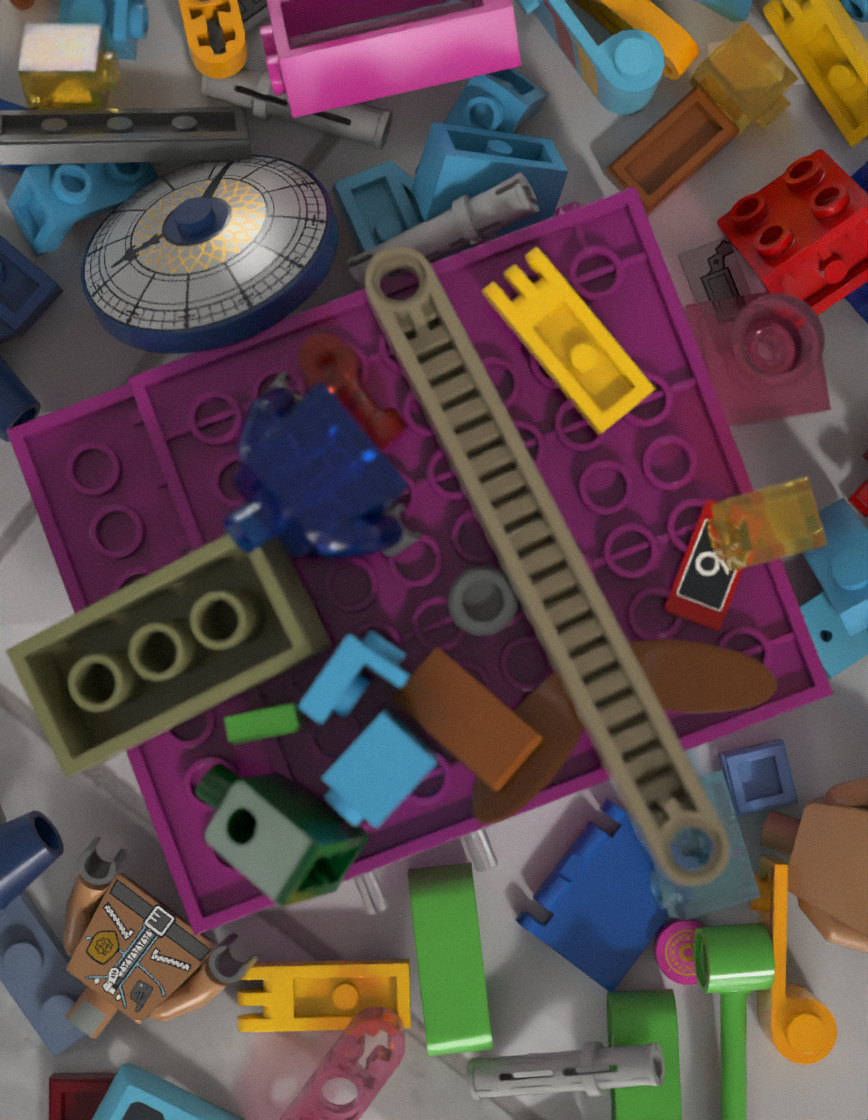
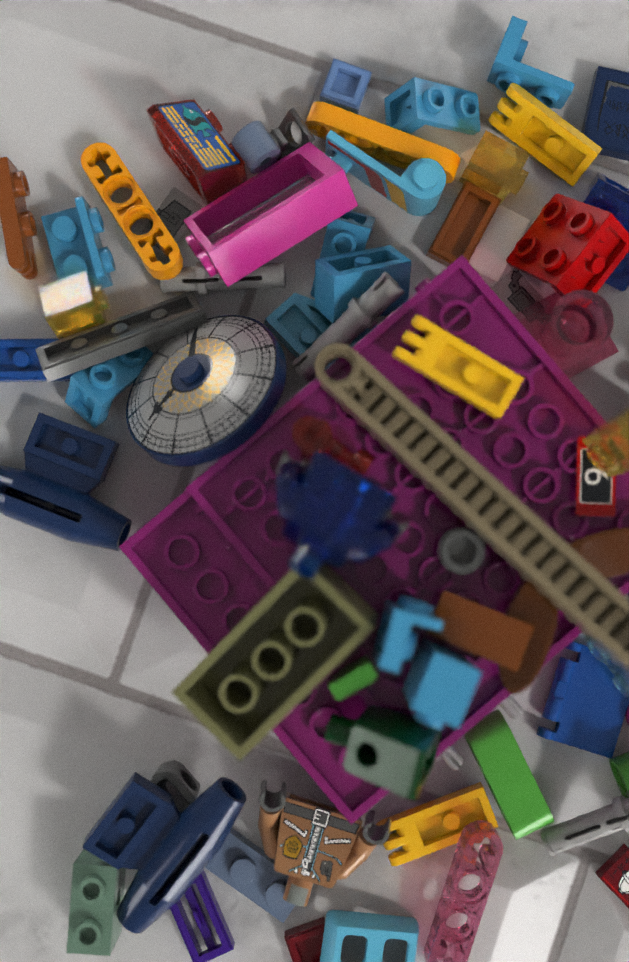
camera: 25 degrees left, 0 degrees up
(714, 191) = (498, 242): none -> white sticker

